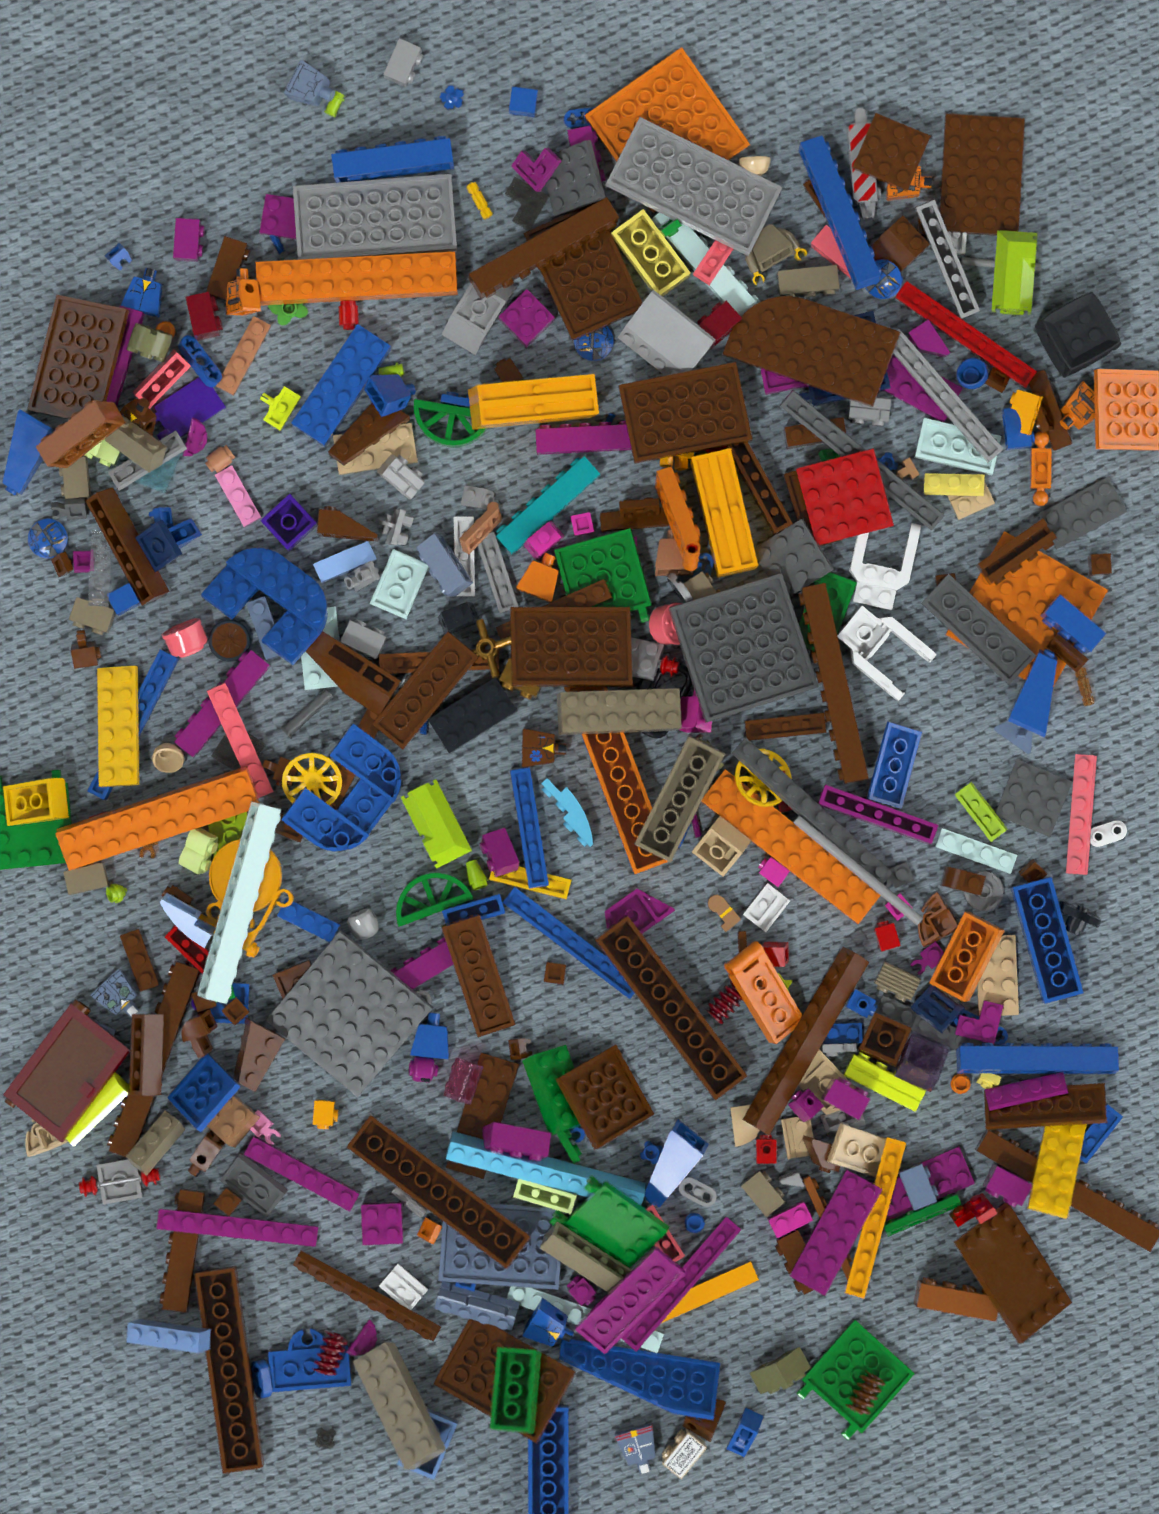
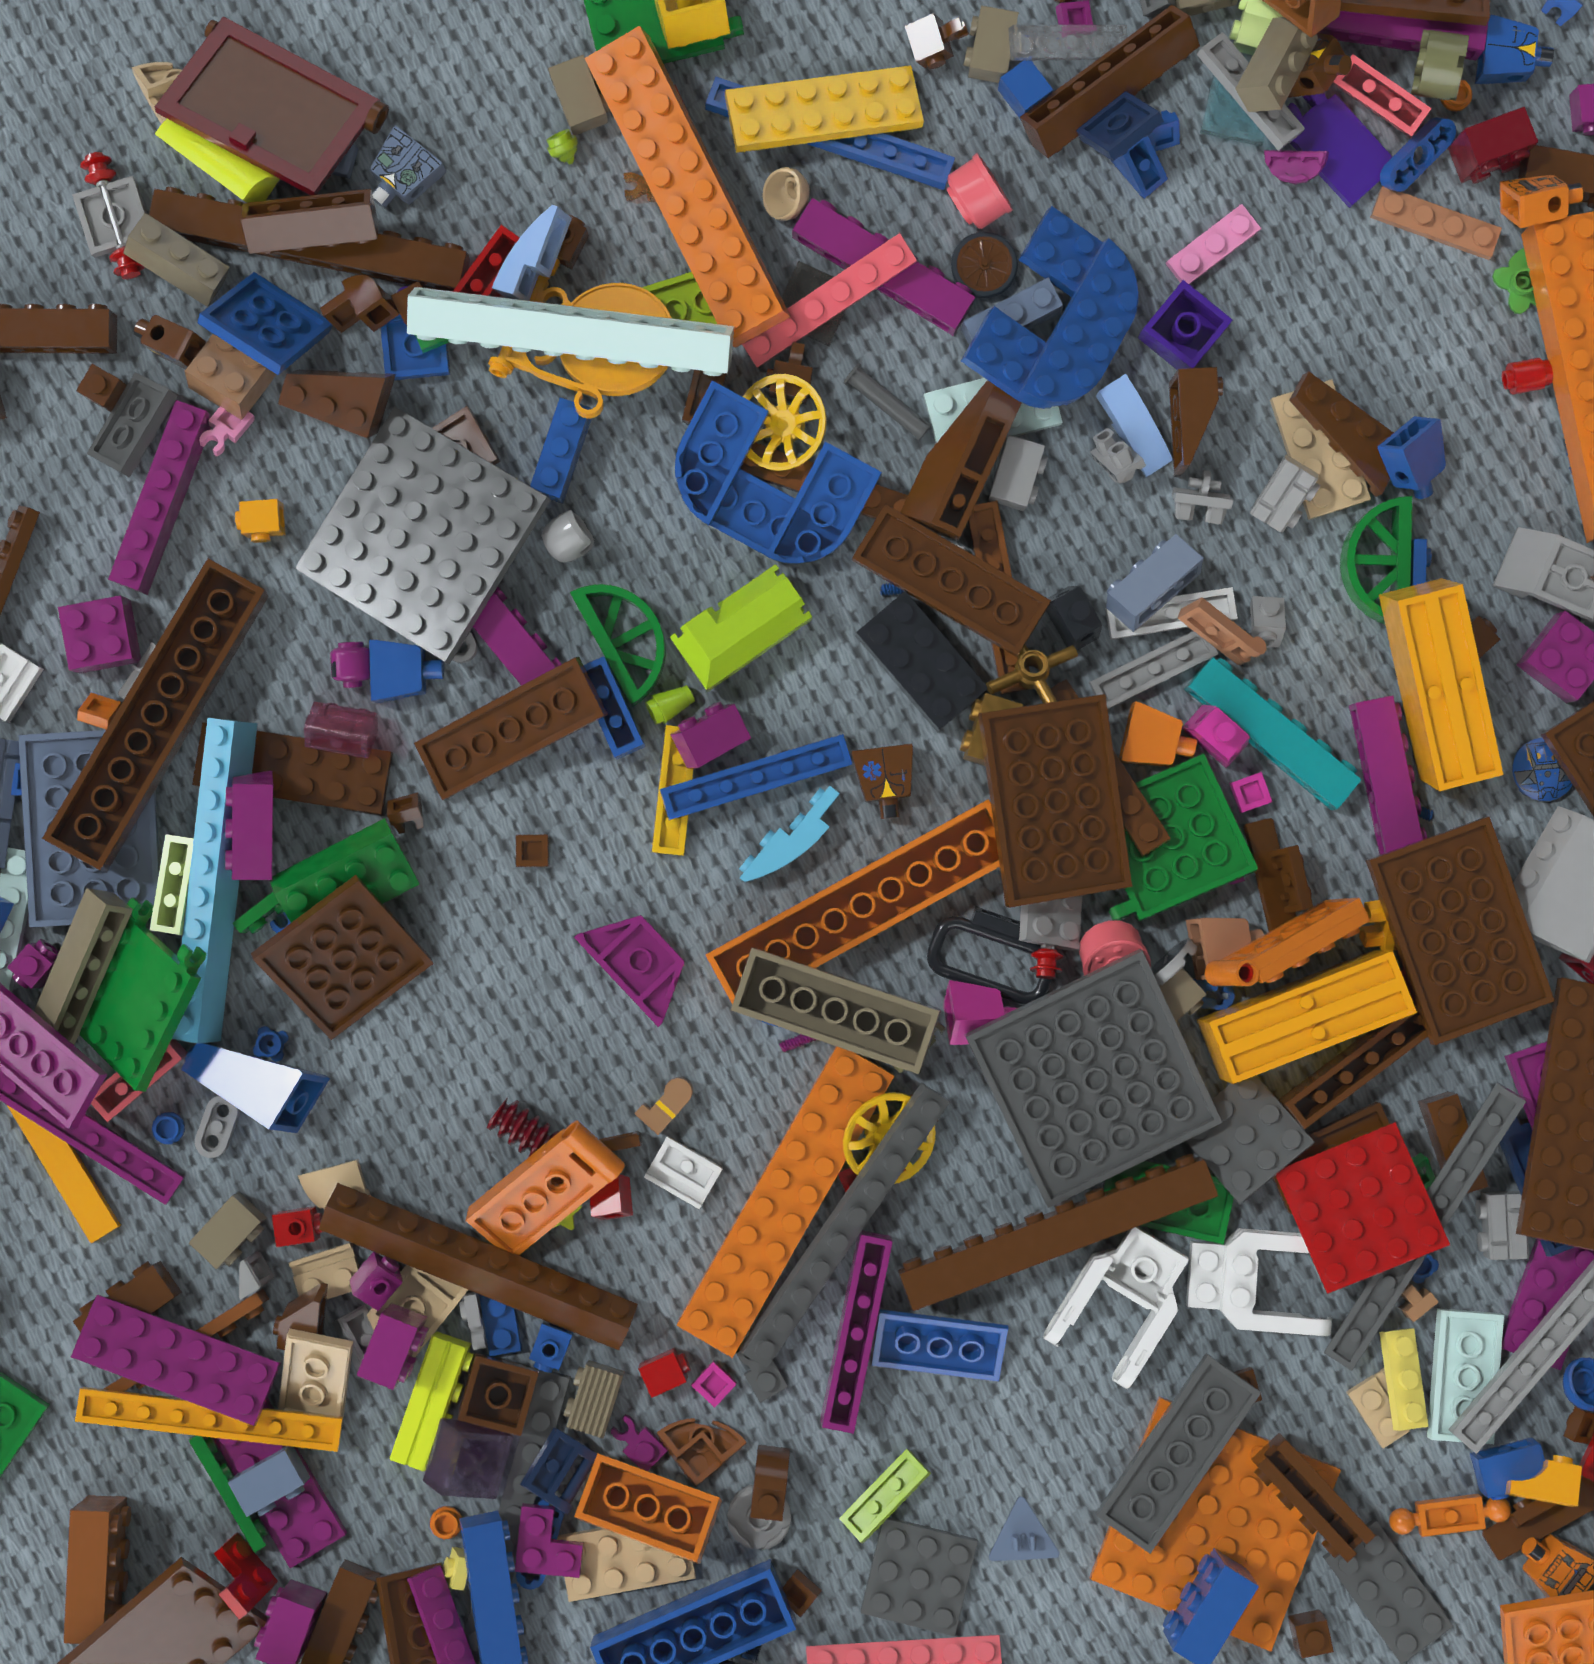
camera: 85 degrees right, 0 degrees up
(139, 960) = (463, 198): reddish brown plate -> none
(198, 850) = (646, 261): yellowish green brick -> none
(219, 459) = (1268, 207): nougat brick -> none
(235, 1011) = (400, 355): reddish brown plate -> none
(237, 1227) = (61, 406): magenta plate -> none
(280, 407) = (1364, 291): neon yellow plate -> none
(341, 385) = (1414, 379): blue brick -> none
(392, 370) = (1453, 465): lime pin -> none
(399, 584) = (1112, 518): light aqua tile -> none
(567, 939) = (583, 871): blue plate -> none
(618, 711) = (962, 892): dark tan brick -> none
(670, 1007) = (500, 1042): reddish brown brick -> none
(721, 846) = (770, 1087): tan brick -> none
(773, 871) = (742, 1175): dark pink brick -> none
(785, 726) = (975, 1162): reddish brown plate -> none
(790, 1219) = (191, 1280): dark pink brick -> none
(858, 870) = (761, 1314): light grey piece -> none
(976, 851) = (821, 1495): light aqua plate -> none
(1034, 698) = (1086, 1562): blue slope -> none
(1067, 653) = (1161, 1603): reddish brown tile -> none
(1084, 687) = (1109, 1634): clear orange axle -> none

